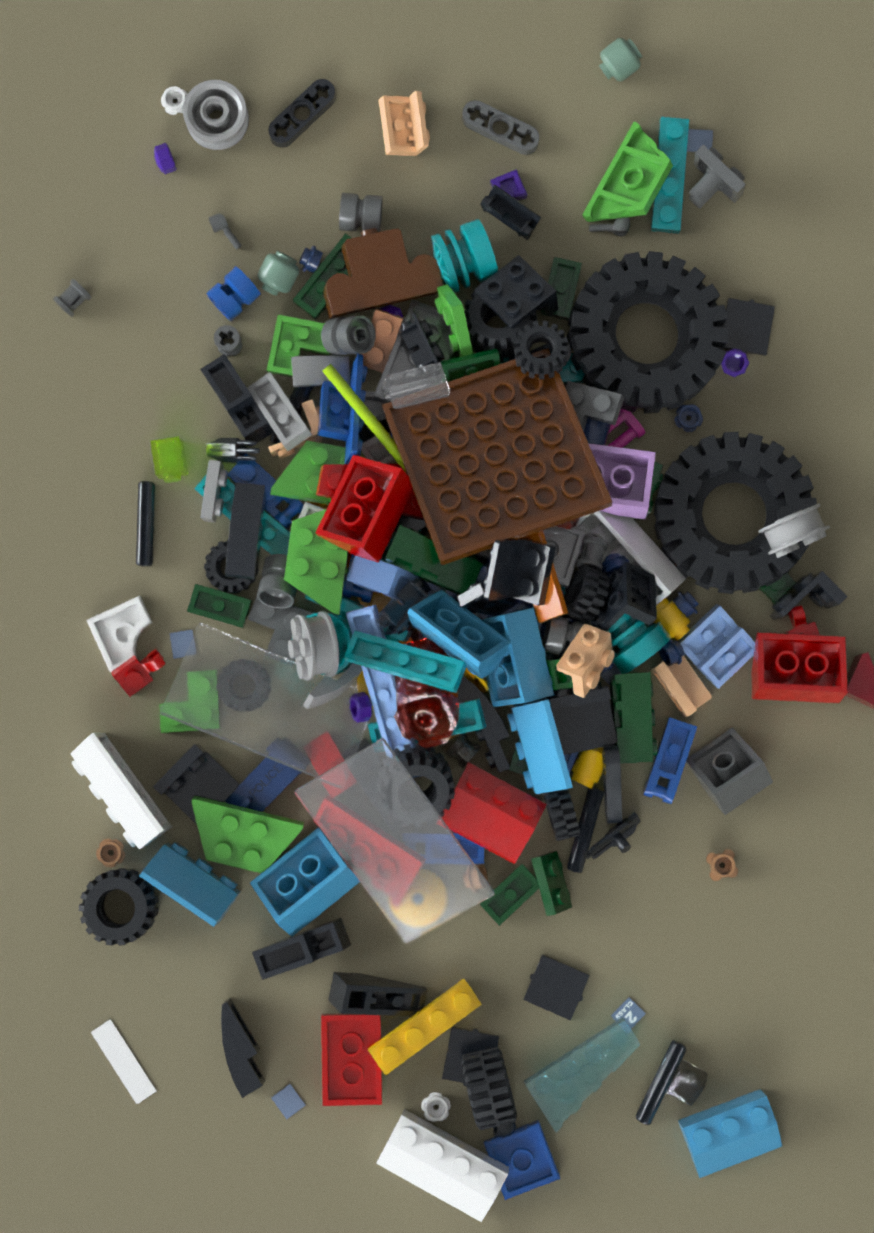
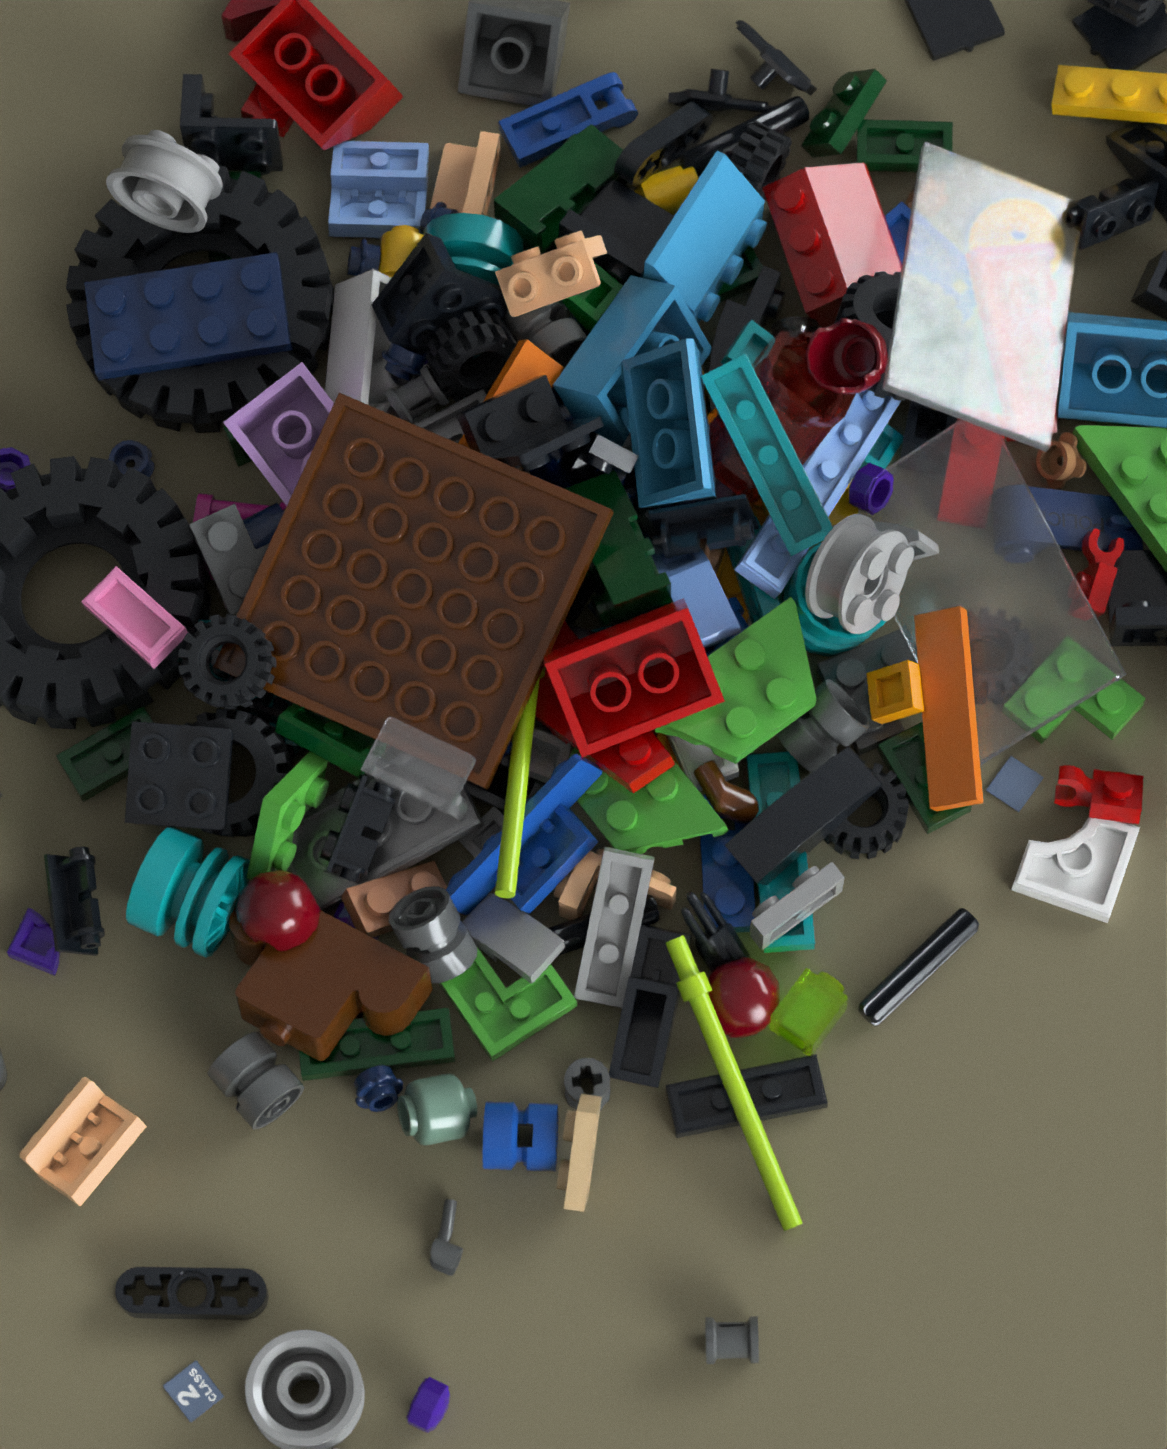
camera: 130 degrees left, 15 degrees down
(163, 402) = (774, 1088): none -> black tile
(201, 436) = (744, 996): none -> dark red hair
(206, 312) = (576, 1173): none -> tan plate
(217, 414) = (695, 989): none -> lime bar
(228, 763) = (1100, 574): none -> red plate
(231, 638) = (948, 709): none -> orange tile
(261, 625) = (895, 692): none -> light orange tile
(264, 80) = (193, 1391): none -> sand blue sticker
(285, 508) = (726, 798): none -> reddish brown arm
(295, 809) = (1050, 462): none -> medium nougat plate
(384, 961) = (1113, 211): none -> black hinge
(414, 738) = (846, 356): none -> dark red hair
(417, 279) = (278, 910): none -> dark red hair
(602, 336) = (135, 617): none -> bright pink tile
(607, 878) = (775, 63): none -> black piece
(726, 491) = (187, 316): none -> dark blue plate

